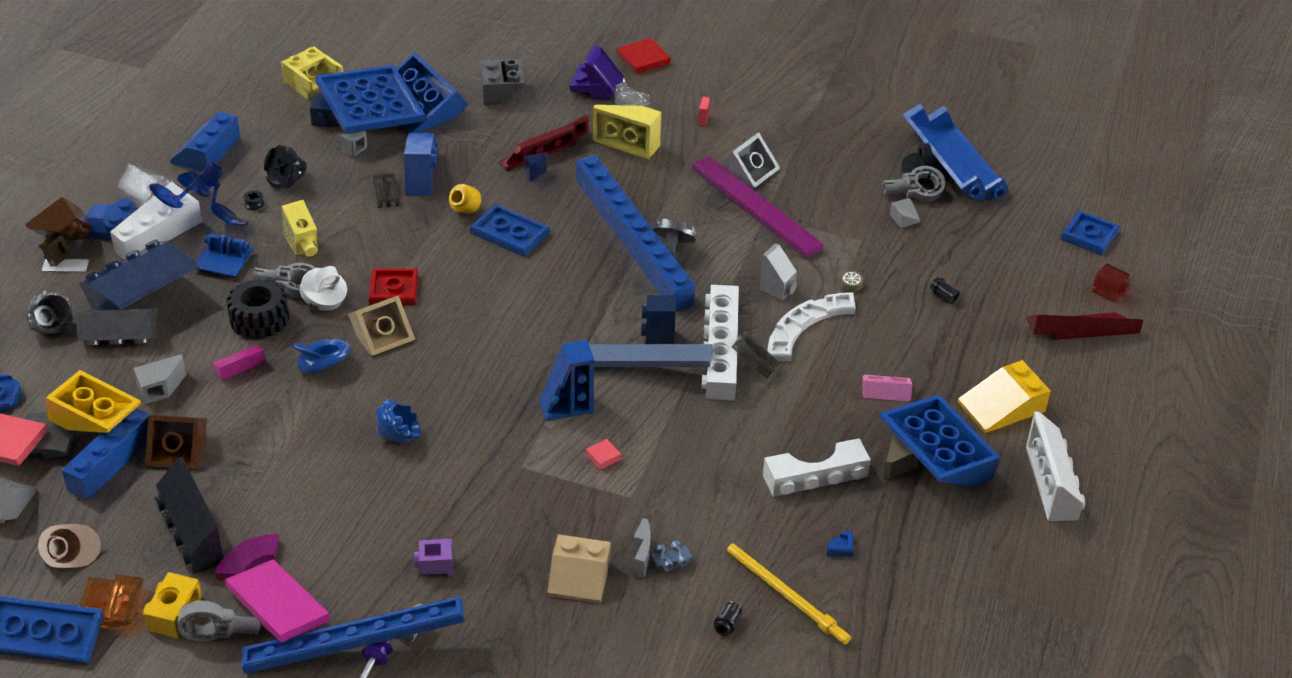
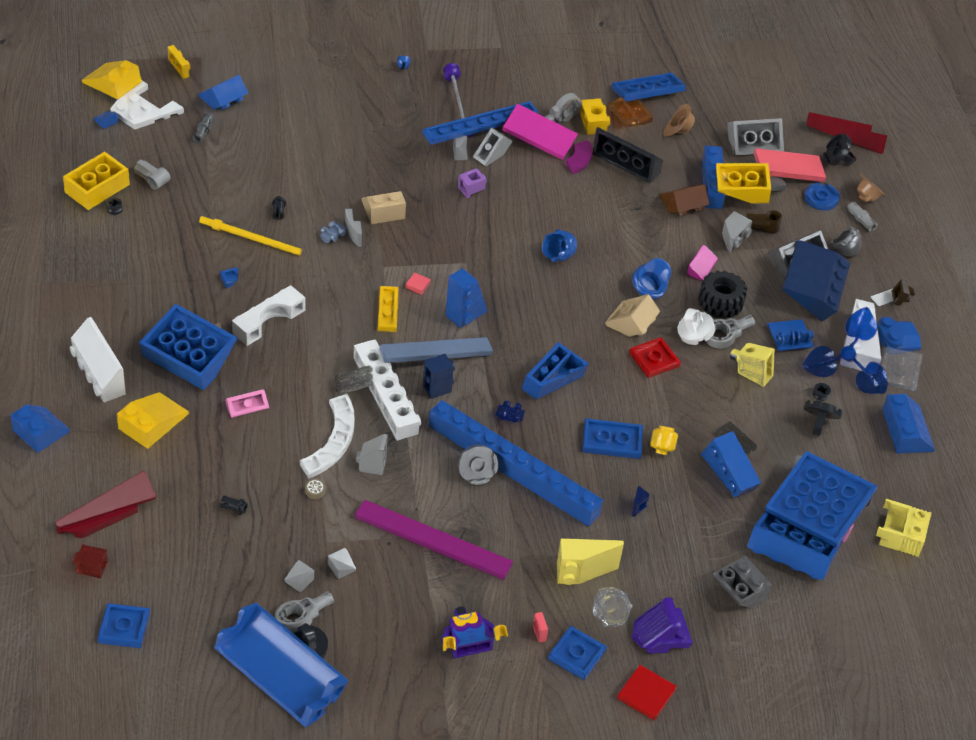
camera: 150 degrees right, 5 degrees up
(61, 219) = (913, 299): reddish brown slope -> none
(103, 370) = (770, 221): none -> dark brown piece
(360, 601) = (492, 147): none -> light grey slope
(527, 292) = (554, 371): none -> blue wedge
(548, 142) = (651, 540): dark red wedge -> none
(599, 282) = (509, 413): none -> clear blue piece
(660, 438) = (388, 309): none -> yellow tile
(680, 94) = (577, 652): none -> blue tile
(752, 161) = (459, 578): light grey slope -> none
(772, 123) = (470, 634): none -> torso
(859, 211) = (341, 563): none -> light grey slope
(1141, 428) = (37, 426): none -> blue slope

